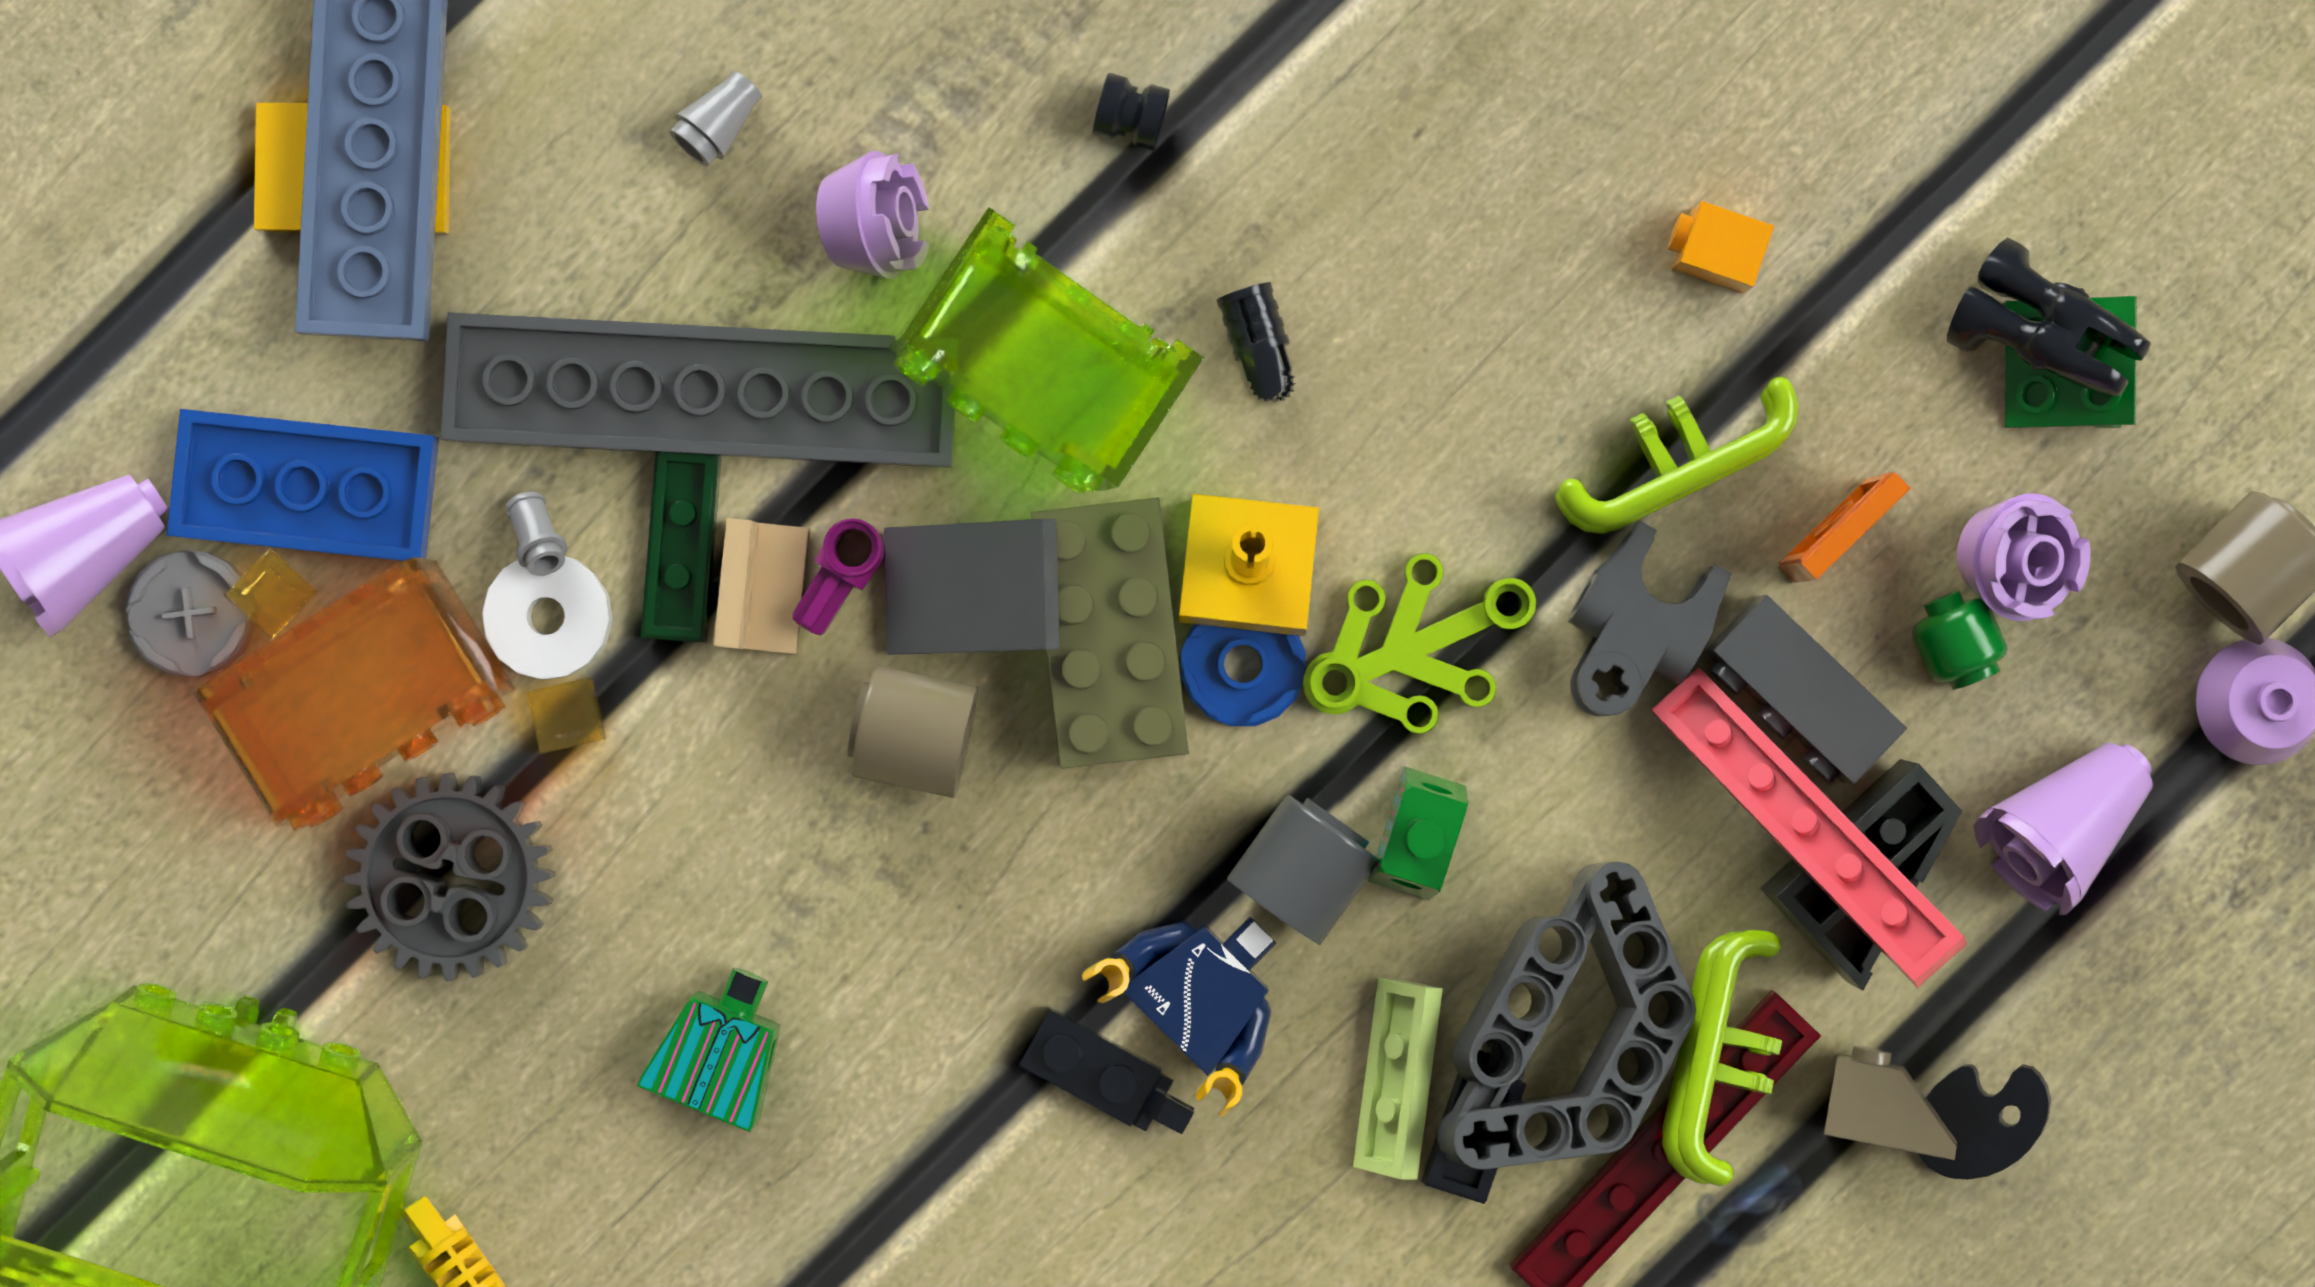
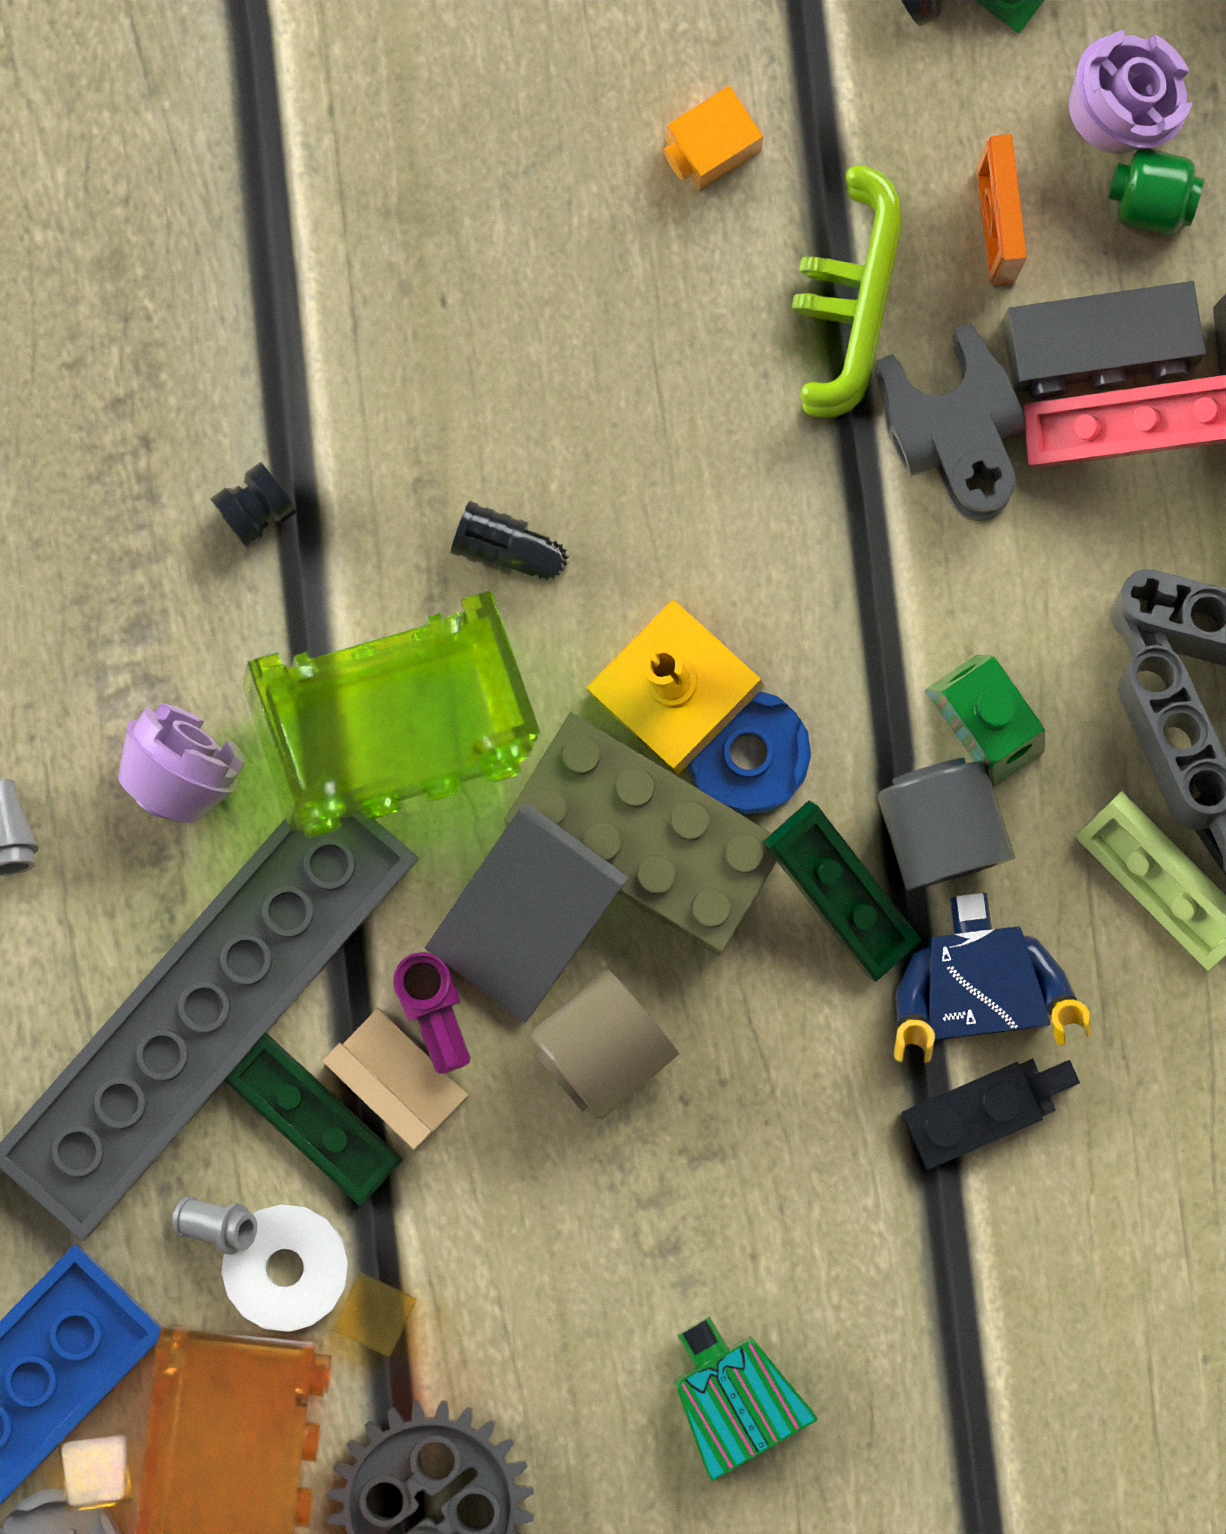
camera: 60 degrees left, 5 degrees down
(1186, 826) = (842, 890): none -> dark green tile
(1407, 649) = (836, 617): lime plant -> none

